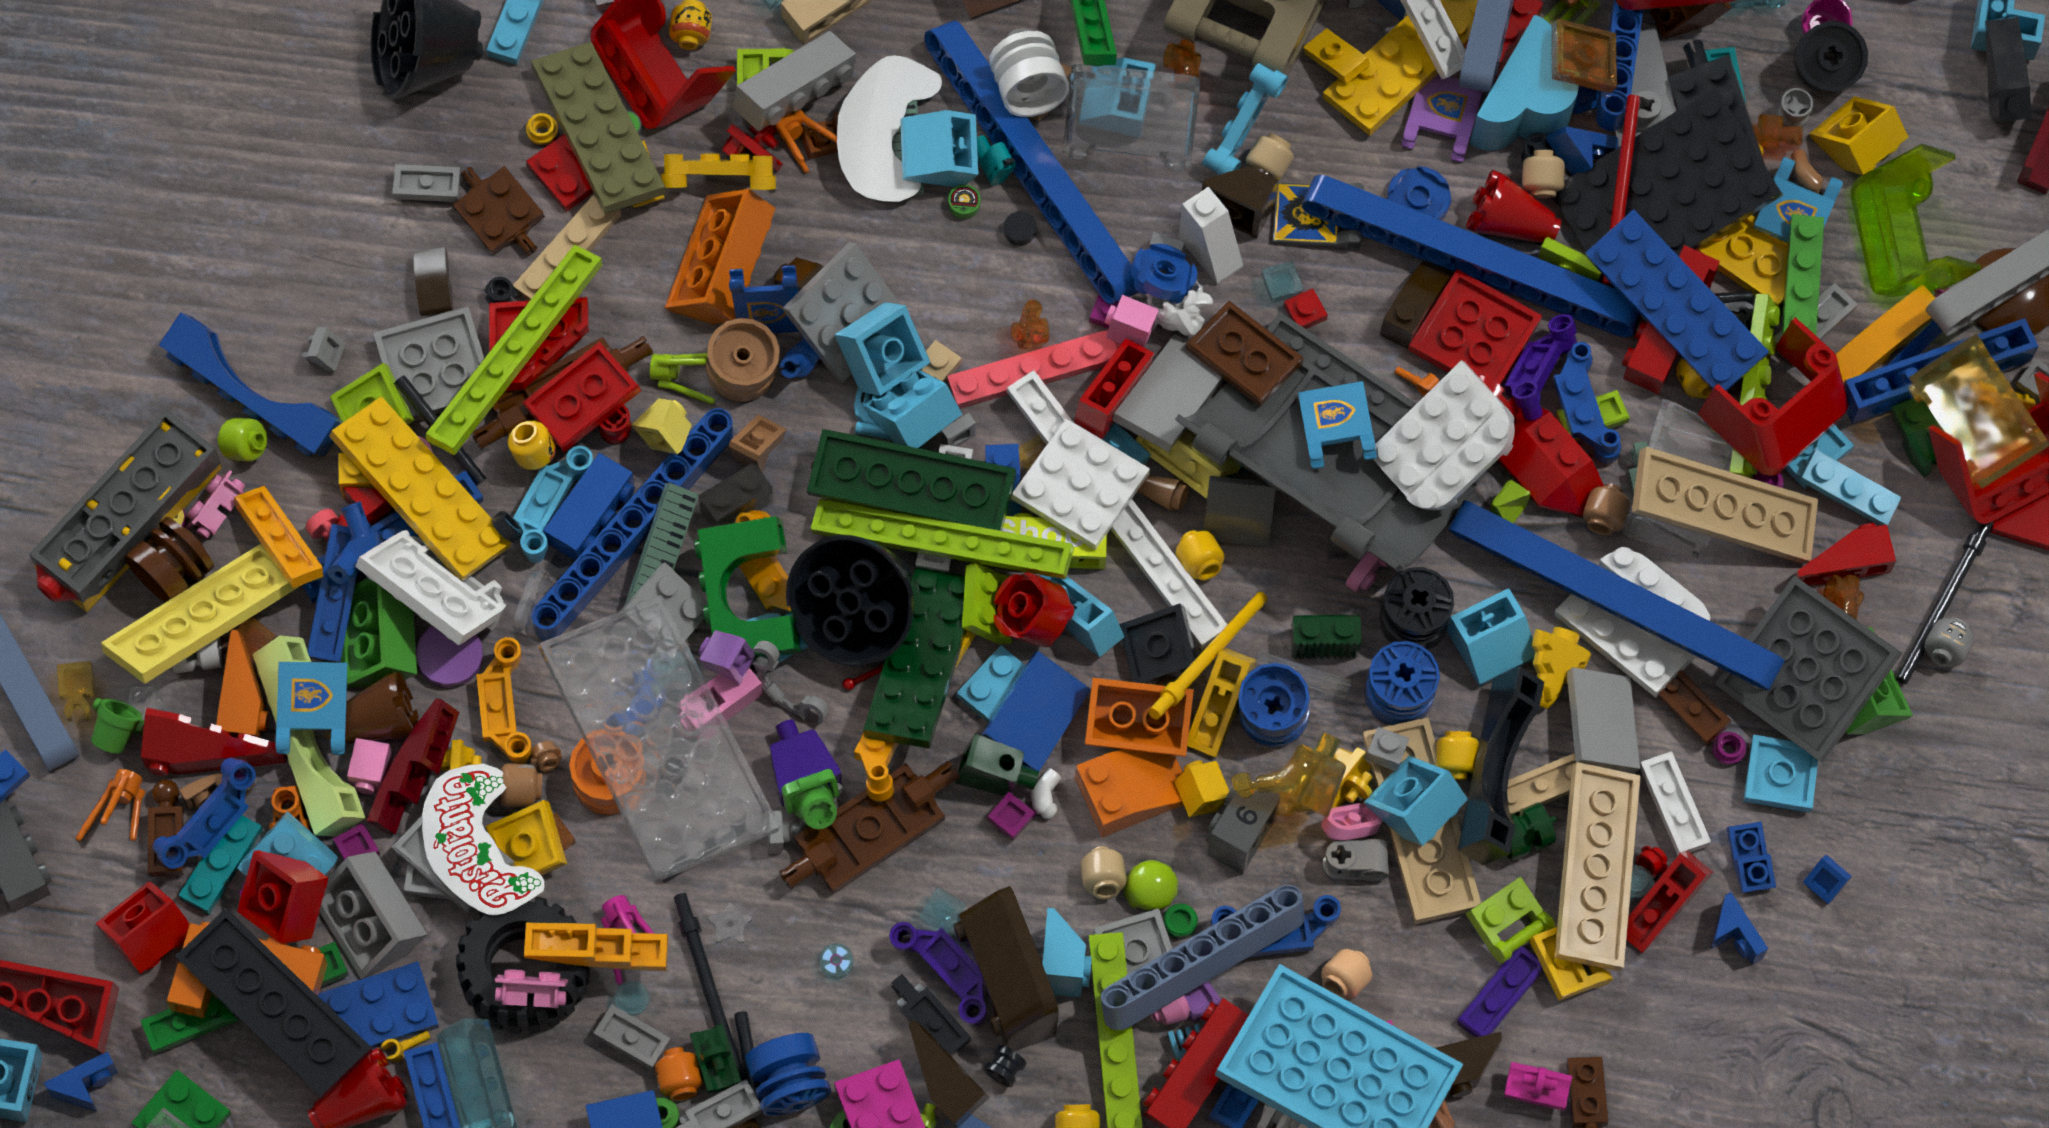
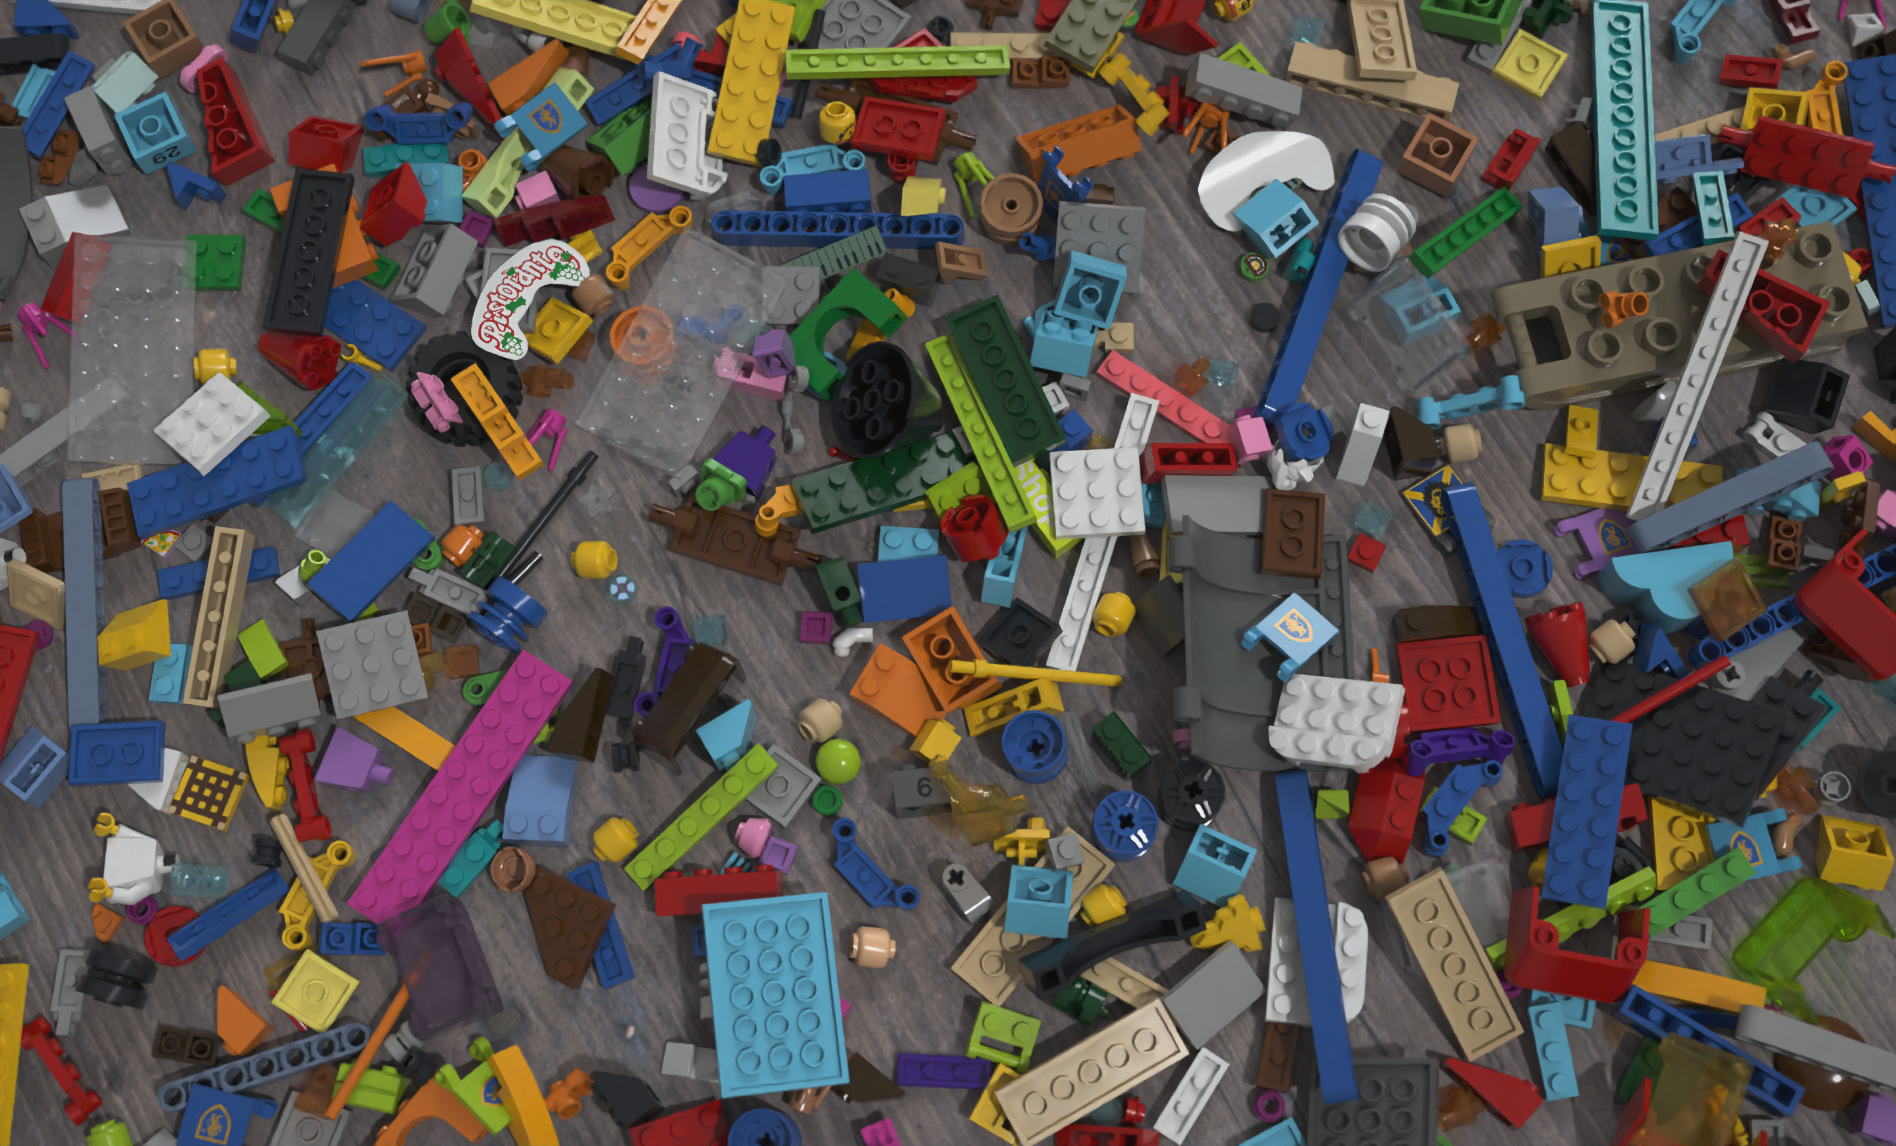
camera: 60 degrees right, 5 degrees up
(545, 756) = (628, 296): medium nougat plate -> none
(567, 890) = (543, 378): none -> clear orange plate
(620, 238) = (1042, 74): none -> dark orange slope
(789, 964) = (594, 559): none -> yellow head
(1048, 297) = (1222, 372): none -> clear light blue plate
(1202, 957) = (789, 822): sand blue beam -> none
(1351, 822) = (986, 864): bright pink plate -> none

